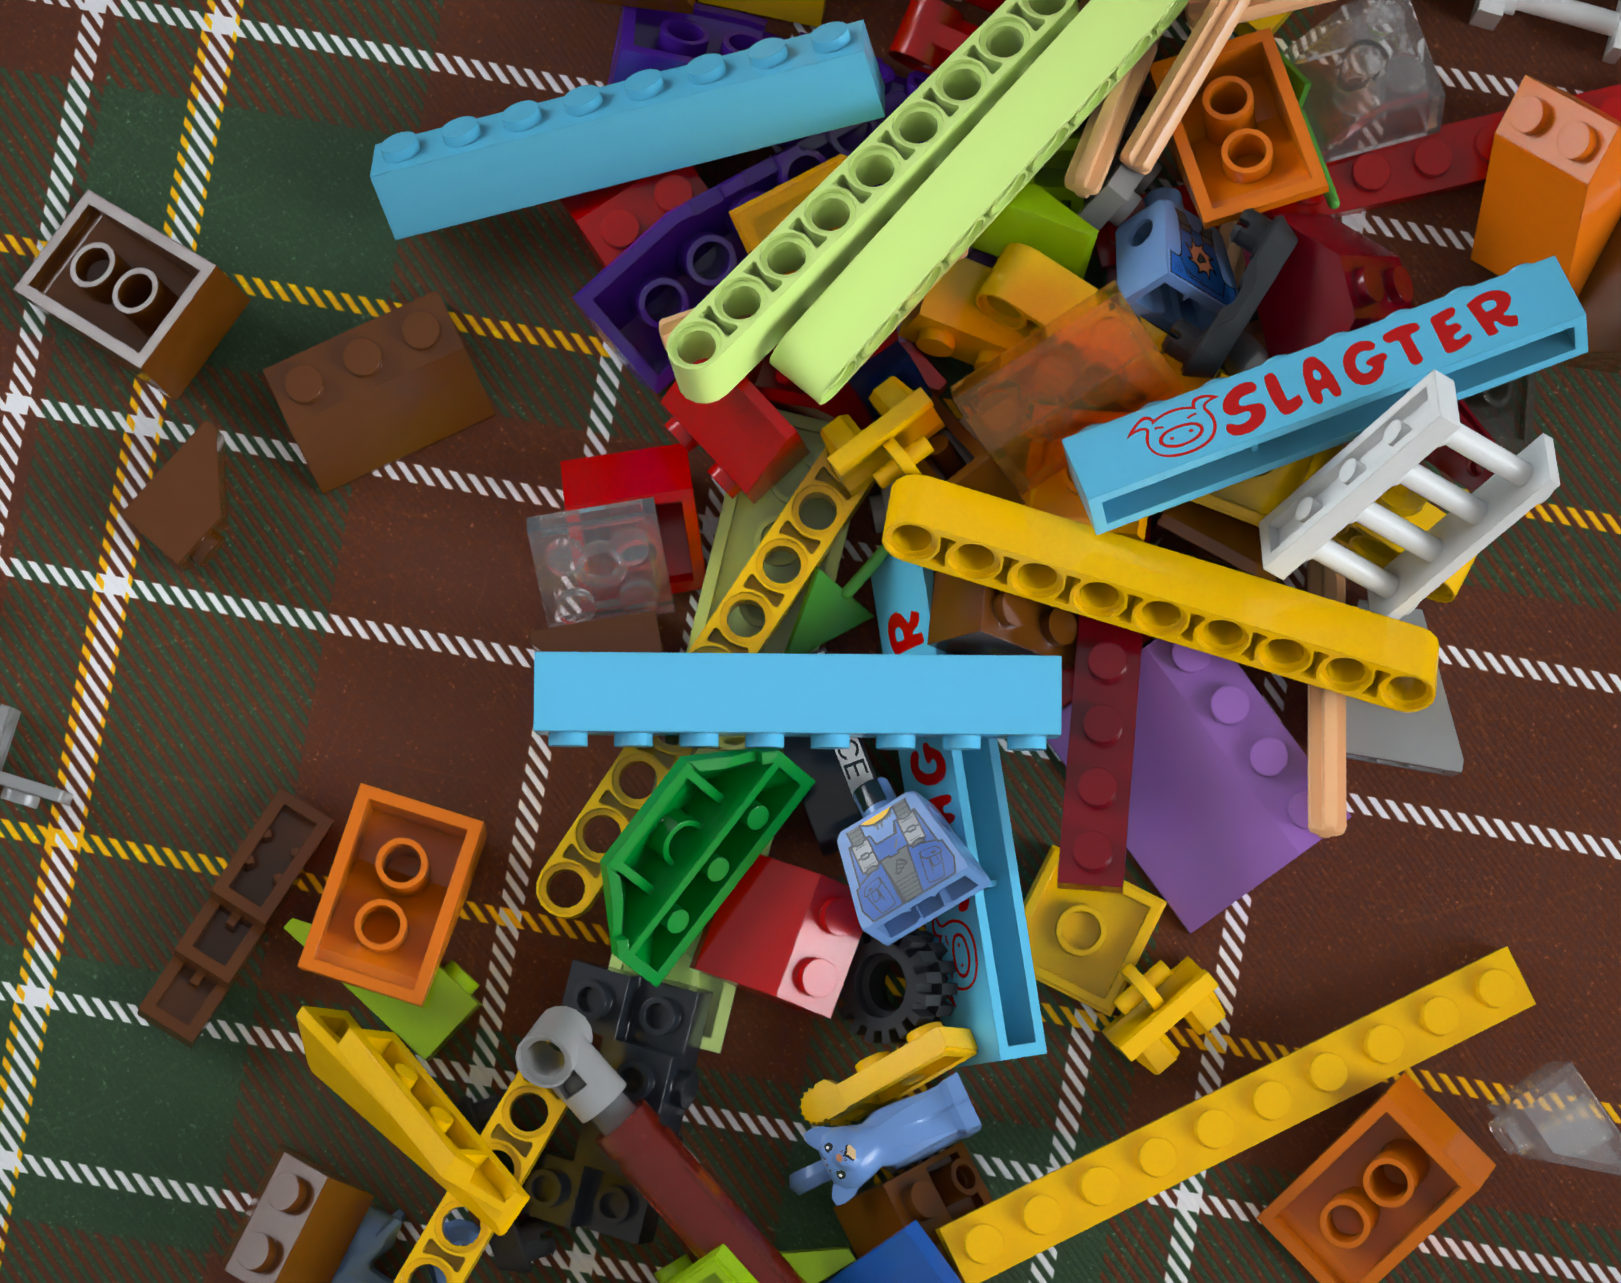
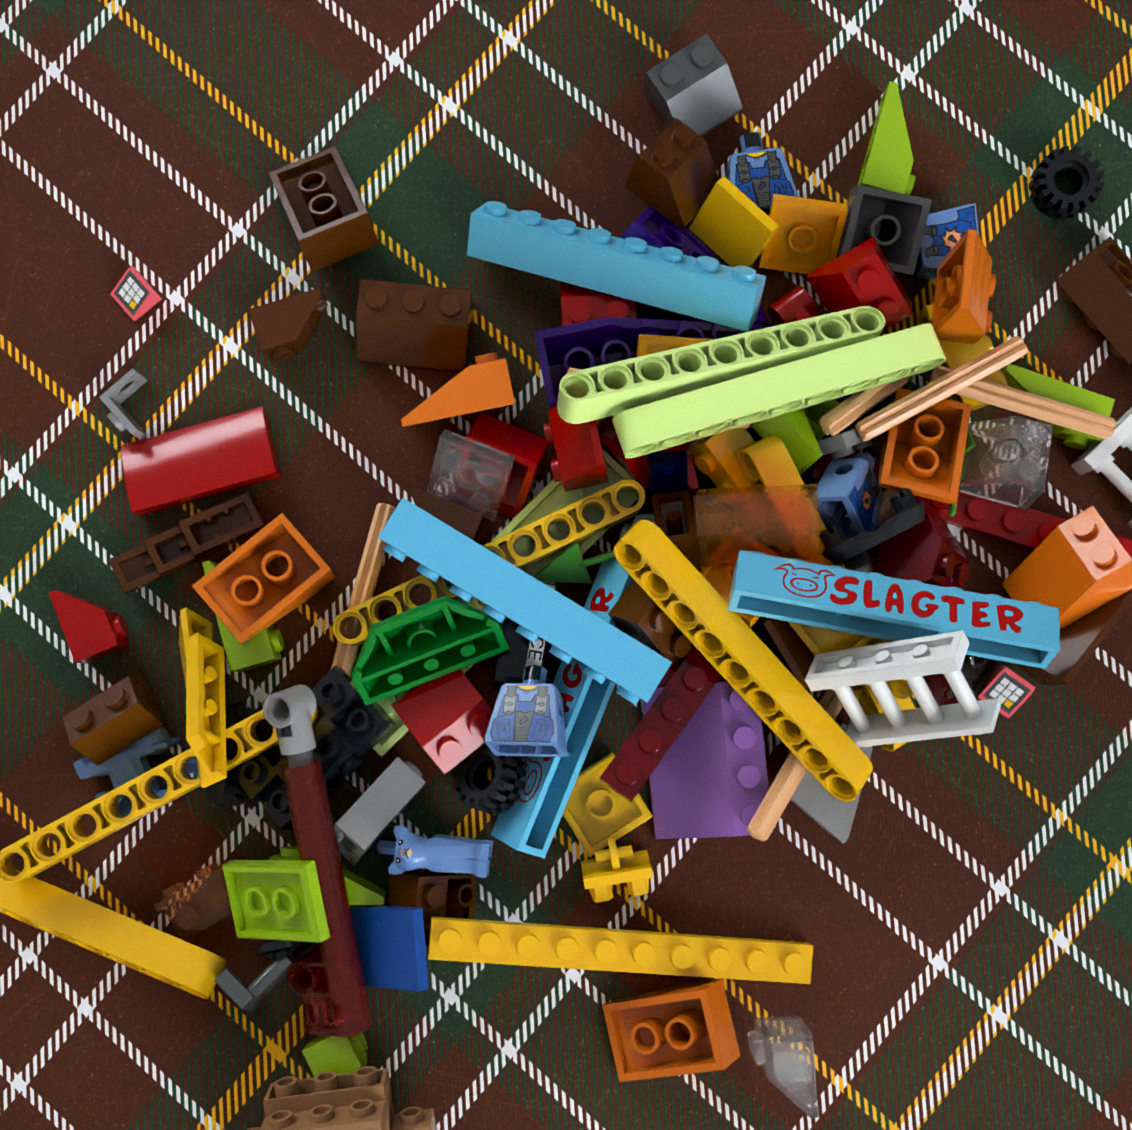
camera: 35 degrees right, 0 degrees up
(171, 1125) = (89, 628): none -> red slope
(178, 784) = (199, 462): none -> red slope
(526, 439) = (472, 390): none -> orange slope
(538, 813) = (364, 585): none -> light nougat axle
(763, 1127) = (377, 809): none -> light grey slope
(889, 444) = (650, 499): yellow hips -> none
(889, 1075) = (457, 821): yellow hinge -> none
(1568, 412) = (1008, 688): none -> slope

